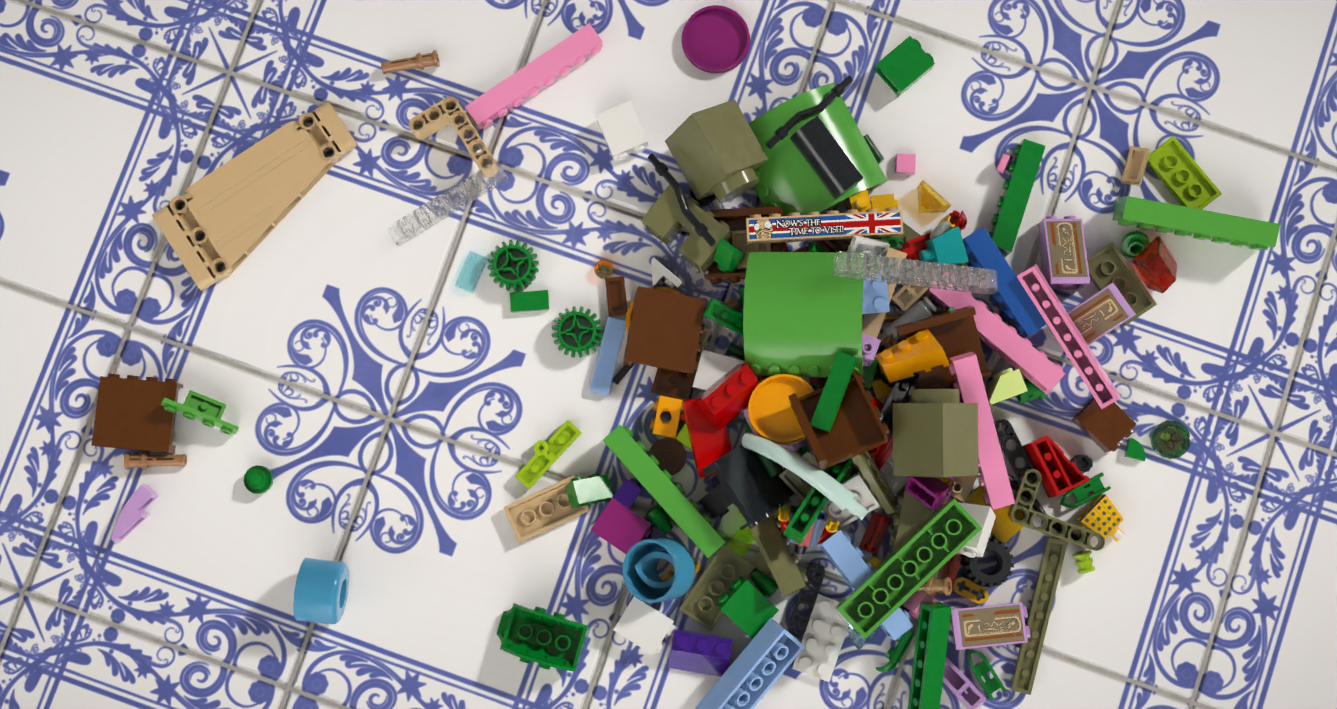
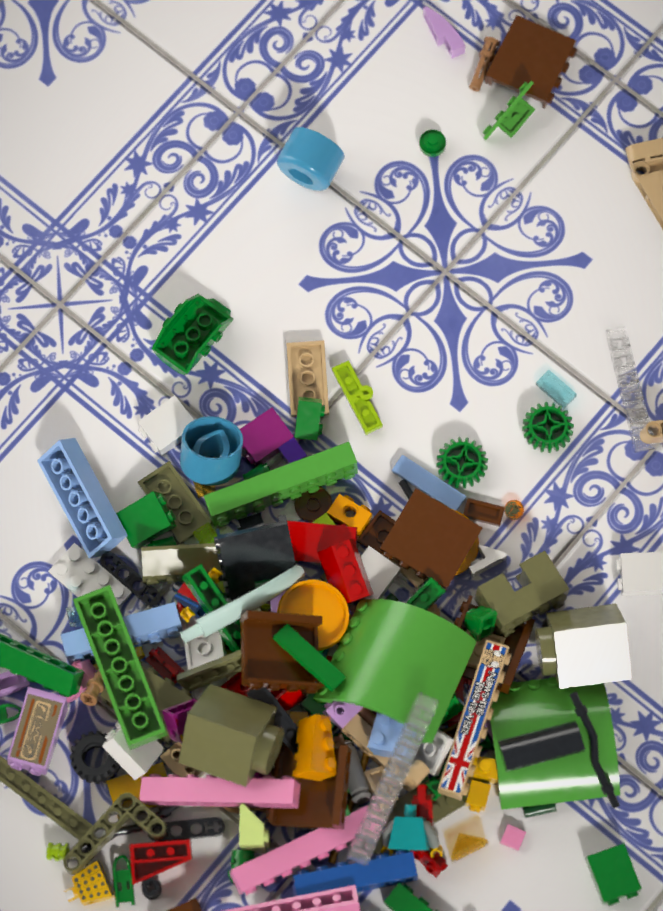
camera: 115 degrees right, 10 degrees down
(529, 301) = (508, 431): green tile -> none
(700, 228) = (514, 597): black bar -> none
(700, 652) = (124, 466): dark purple slope -> none
(896, 654) = (48, 641): green piece -> none
(951, 568) = (100, 716): clear red tile -> none
(972, 586) = (70, 732): yellow beam -> none

